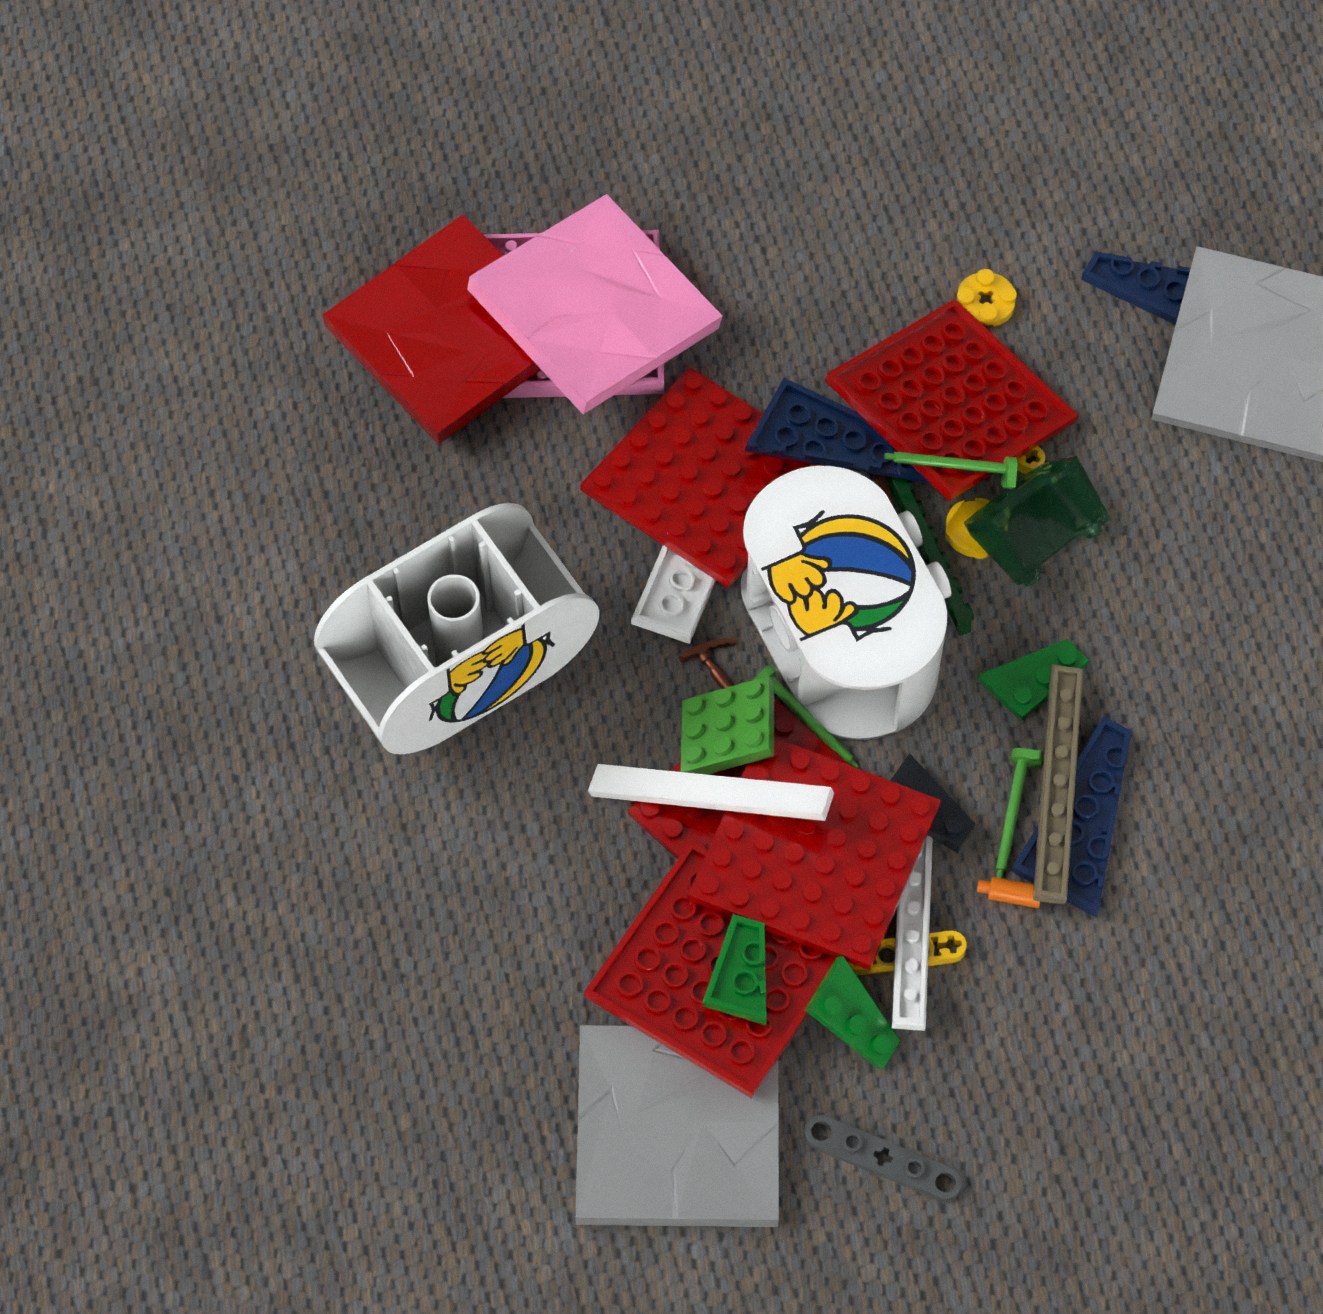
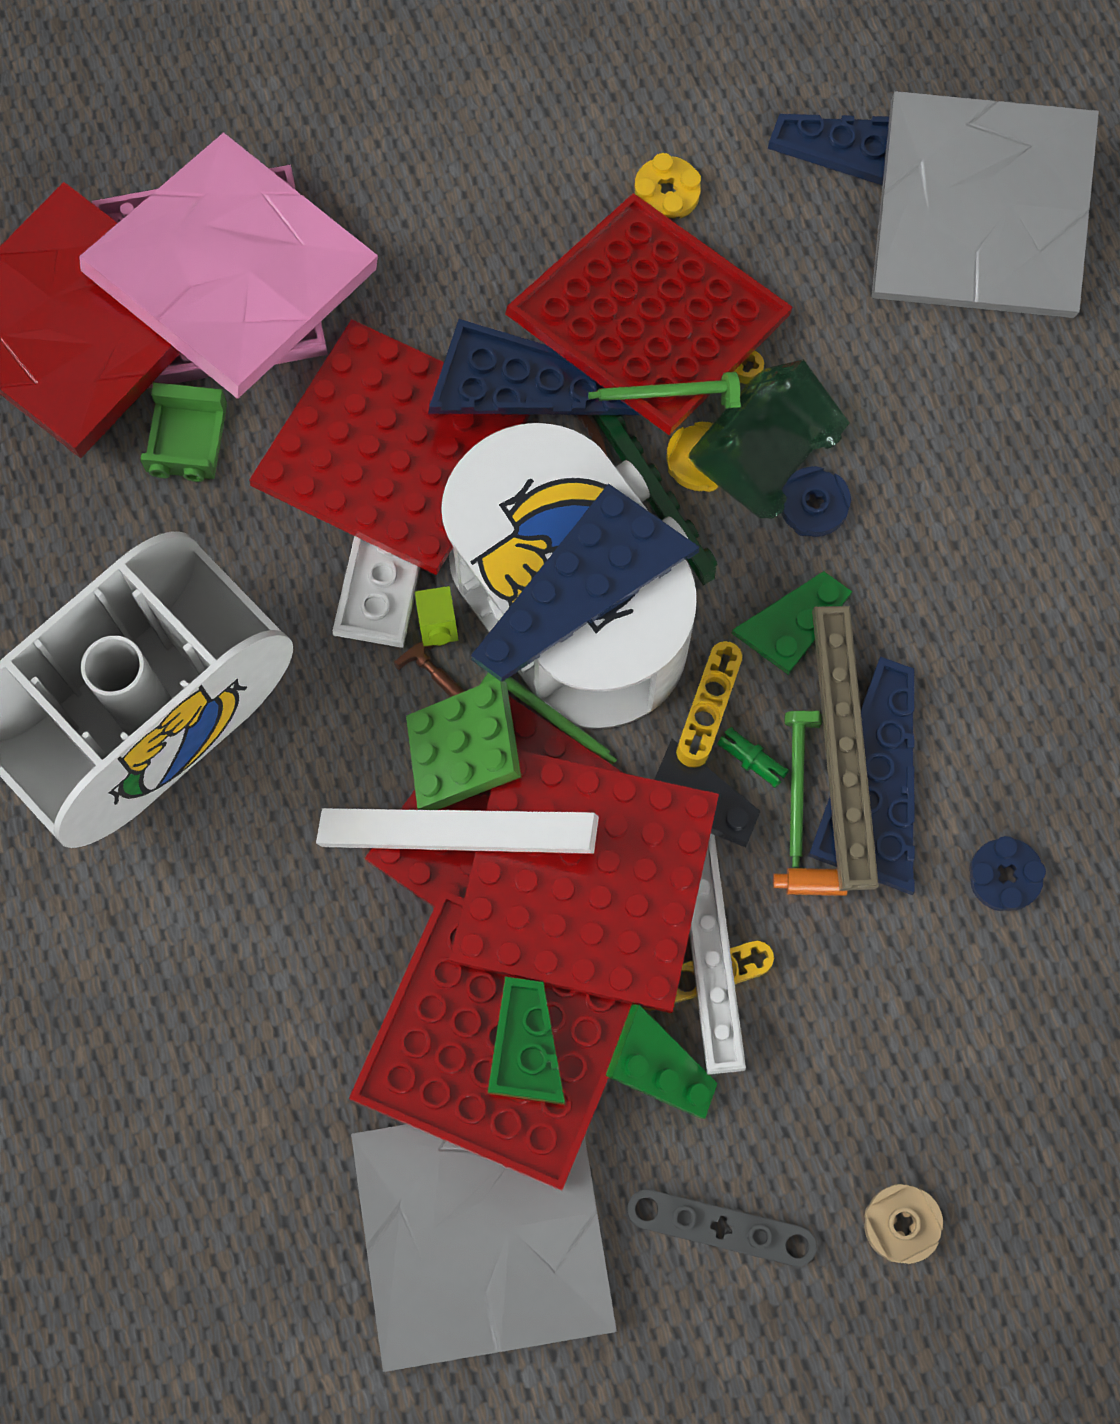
camera: 10 degrees left, 10 degrees up
(530, 437) = (185, 432): none -> bright green panel
(722, 621) = (436, 616): none -> lime brick
(859, 592) = (591, 572): none -> dark blue wing
(944, 729) = (709, 703): none -> yellow beam
(977, 782) = (753, 757): none -> green pin
(1049, 1164) = (924, 1231): none -> tan plate
(1078, 567) = (824, 485): none -> dark blue plate
(1182, 896) = (1006, 853): none -> dark blue plate

